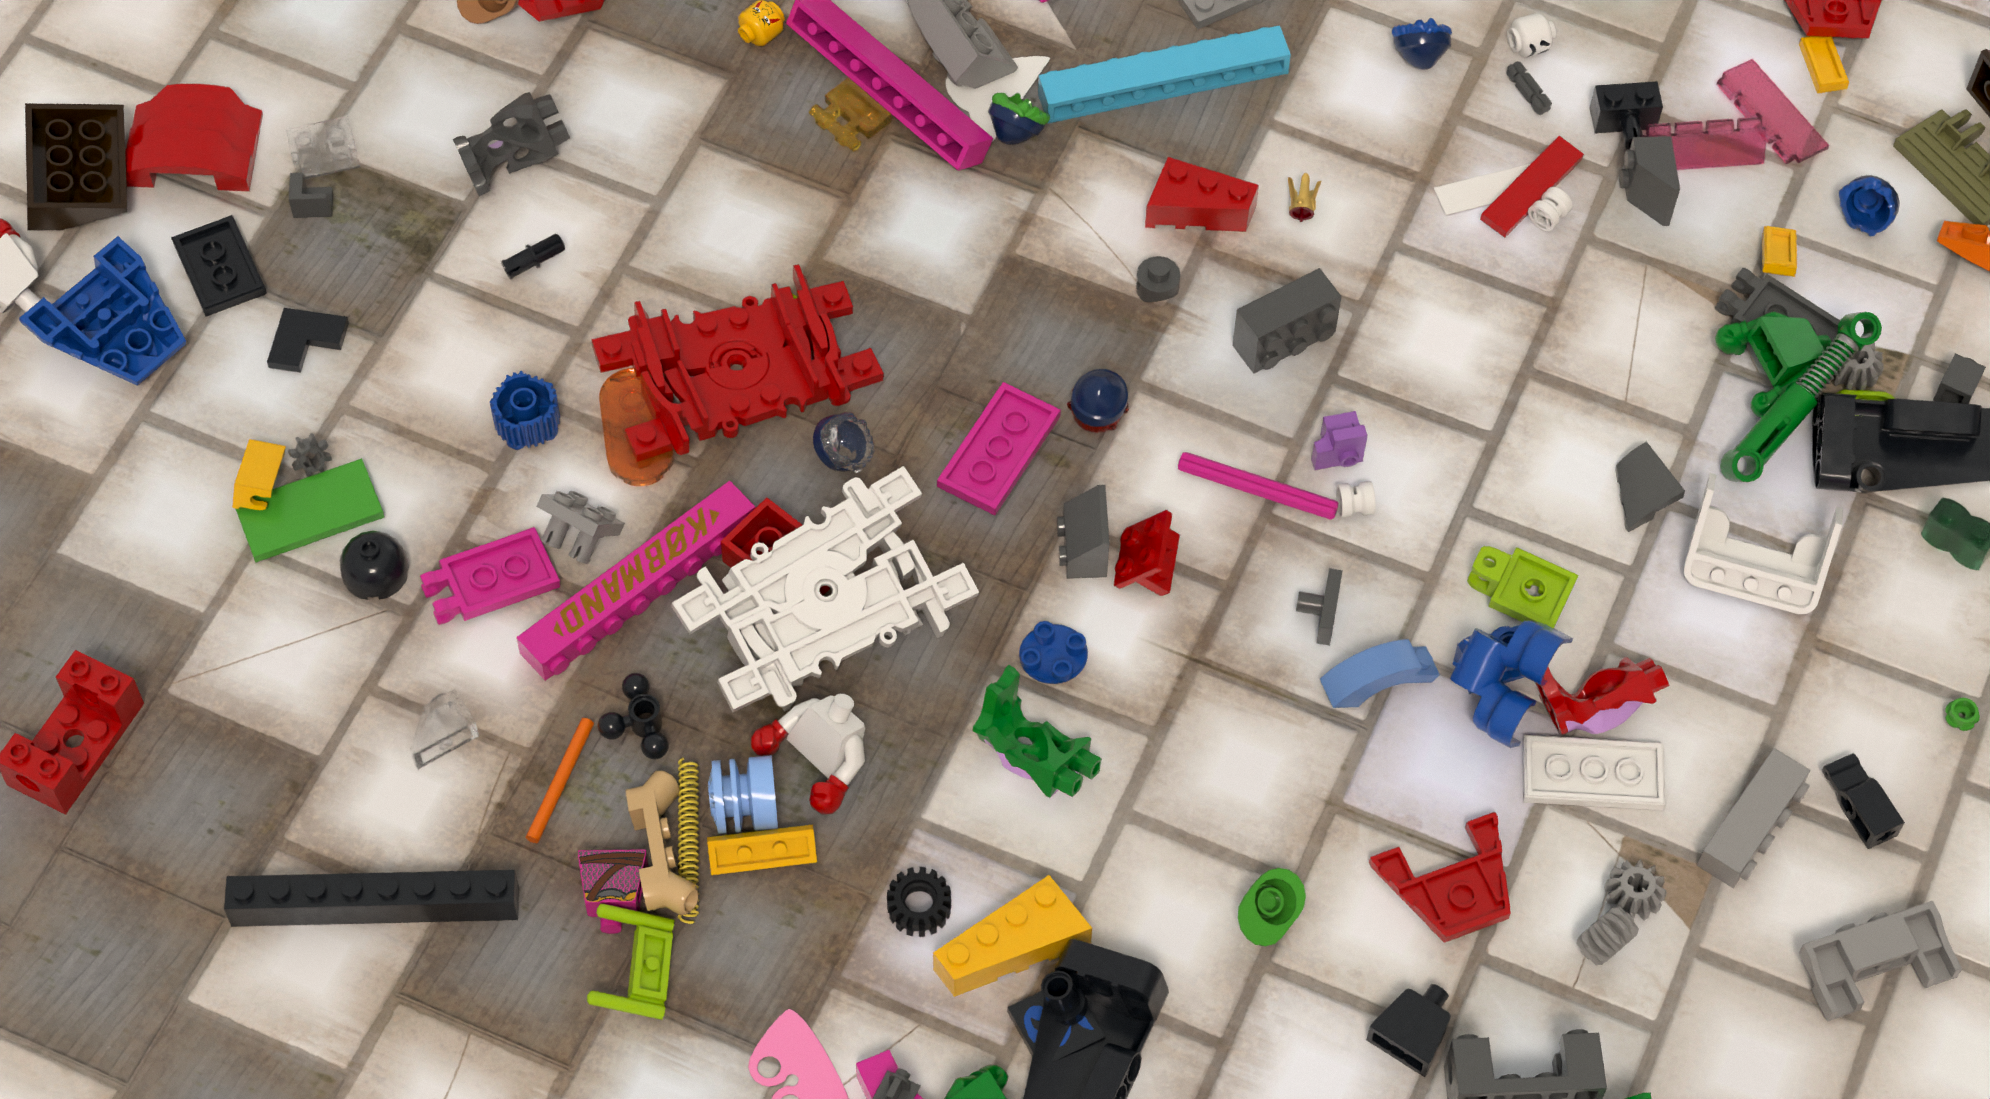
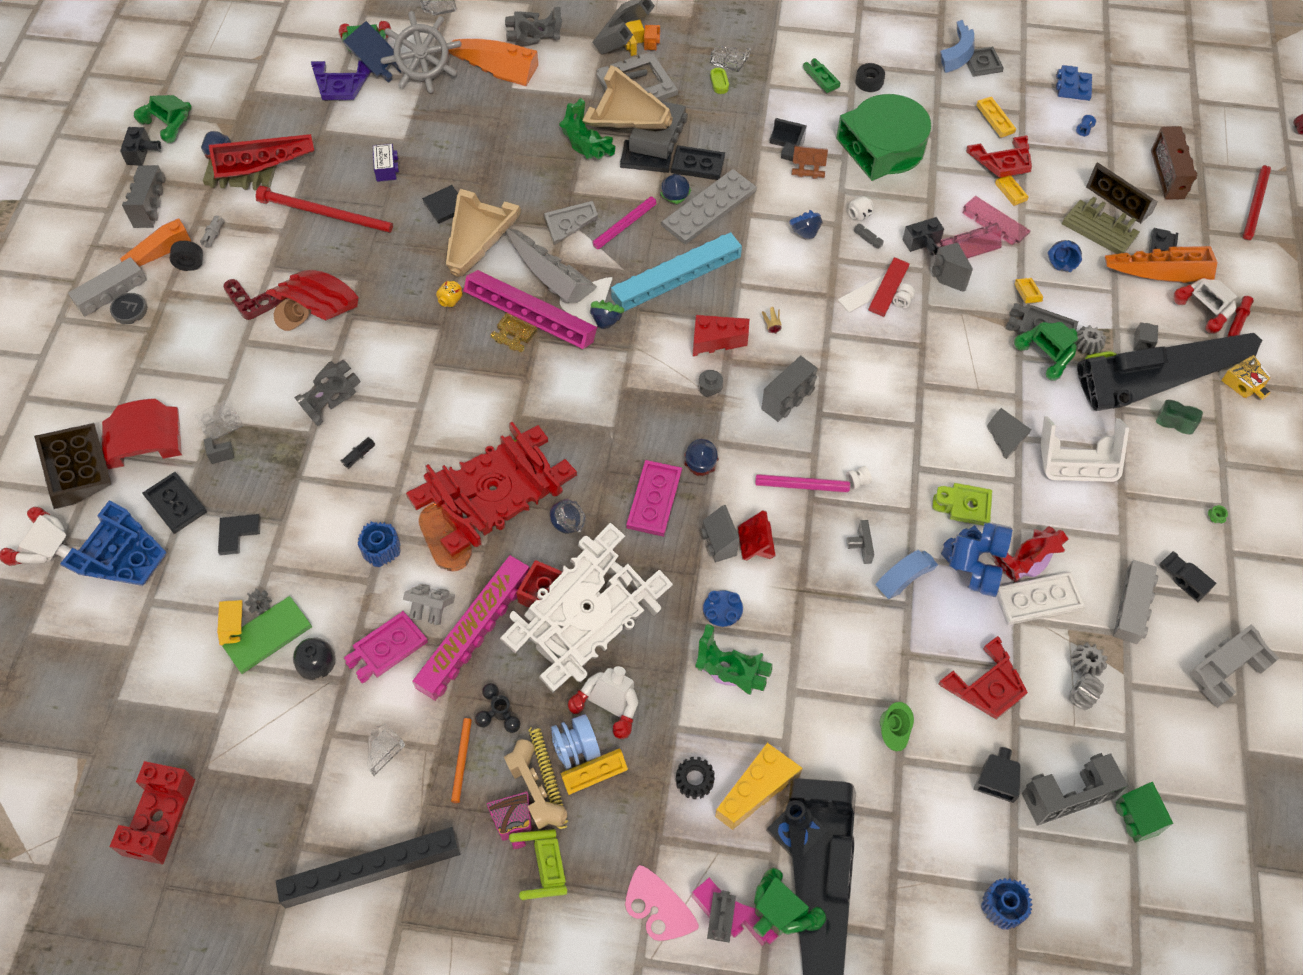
camera: 15 degrees left, 0 degrees up
(1341, 442) = (839, 447): medium lavender brick -> none
(1798, 399) = (1074, 365): green piece -> none

